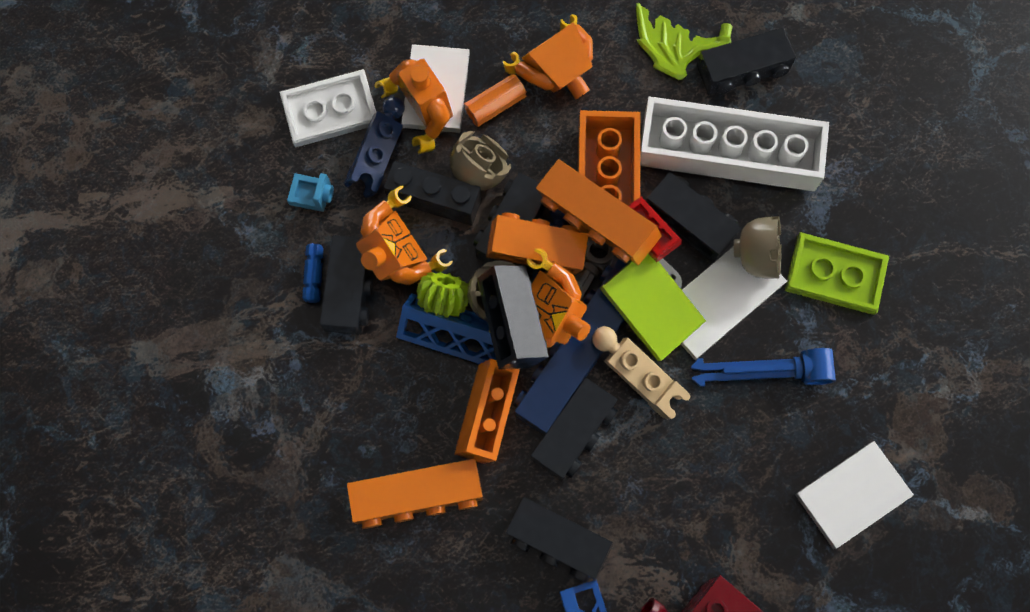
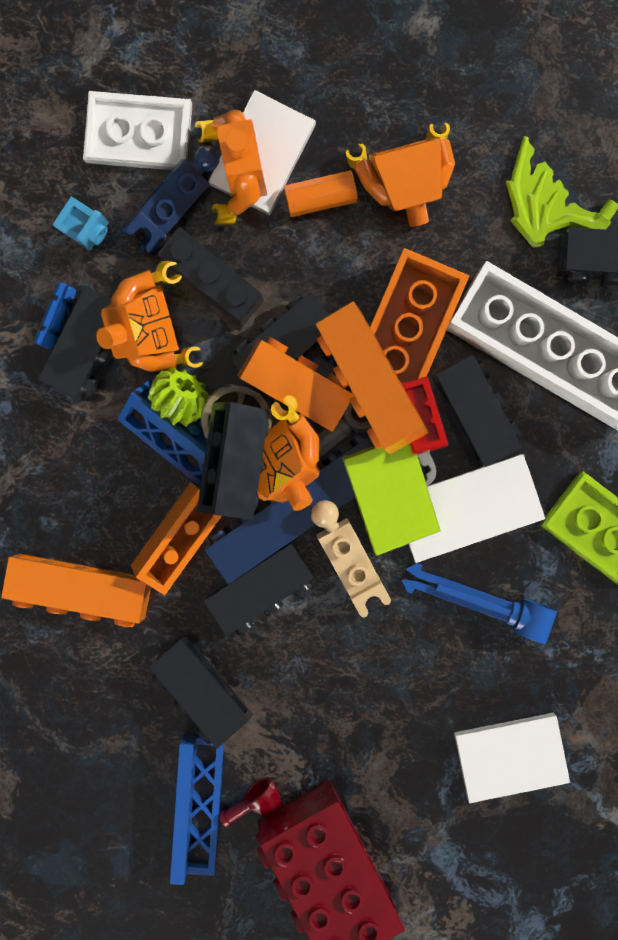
camera: 20 degrees right, 15 degrees up
(478, 161) = (273, 261): dark tan cylinder -> none
(760, 247) = (531, 479): dark tan cylinder -> none

